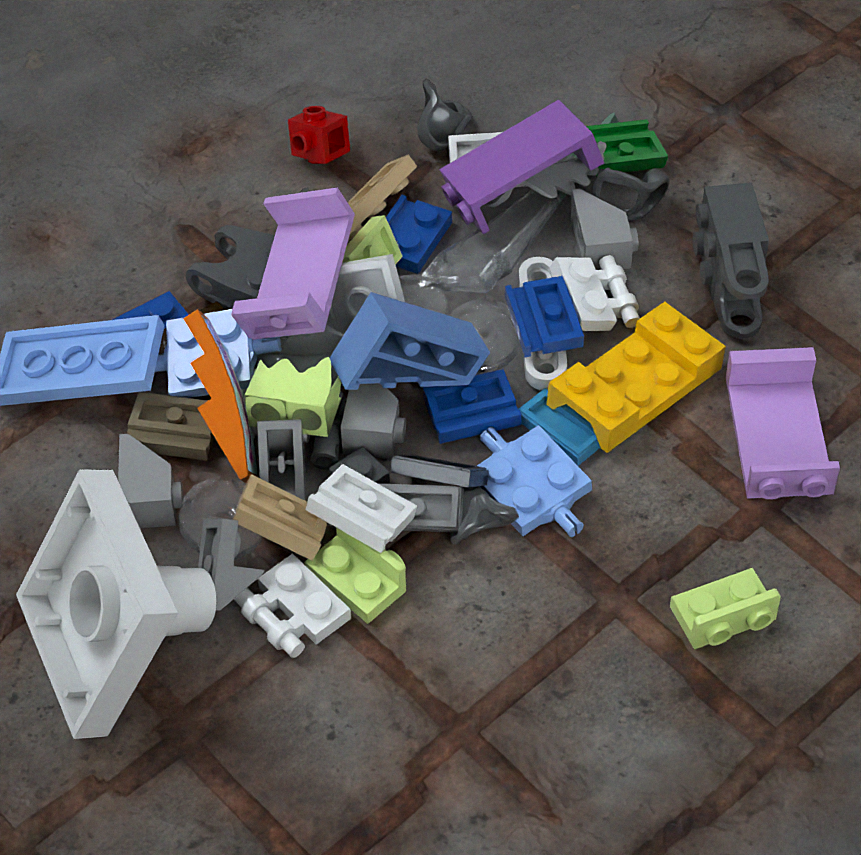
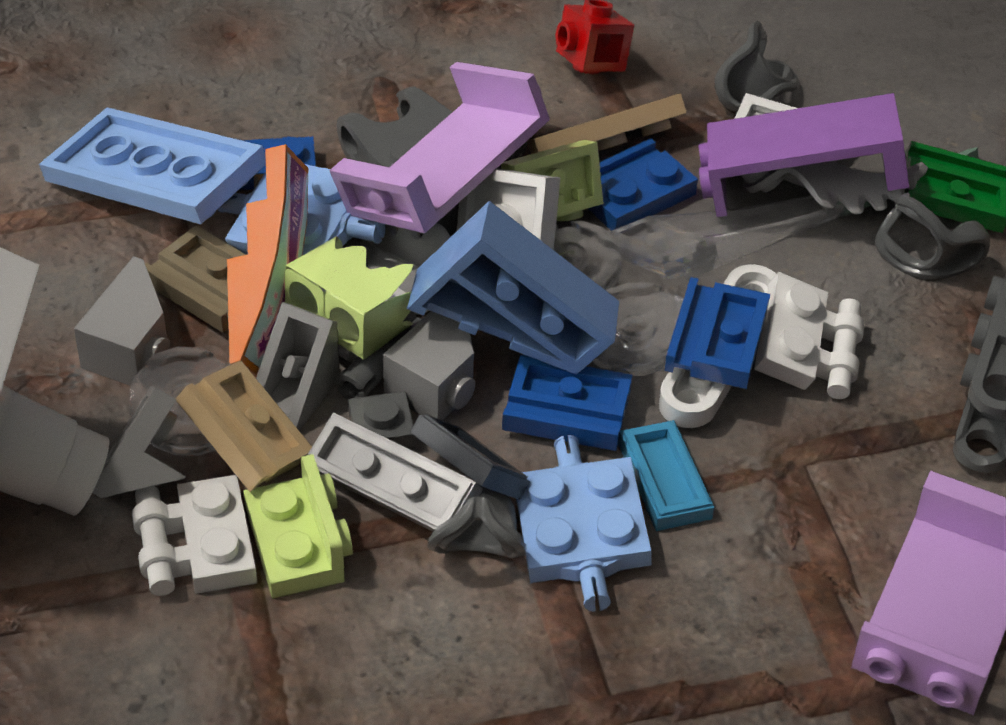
camera: 25 degrees right, 5 degrees down
(361, 508) = (337, 453): white plate -> none
(602, 230) = (866, 270): light grey slope -> none
(639, 375) = (799, 457): yellow piece -> none

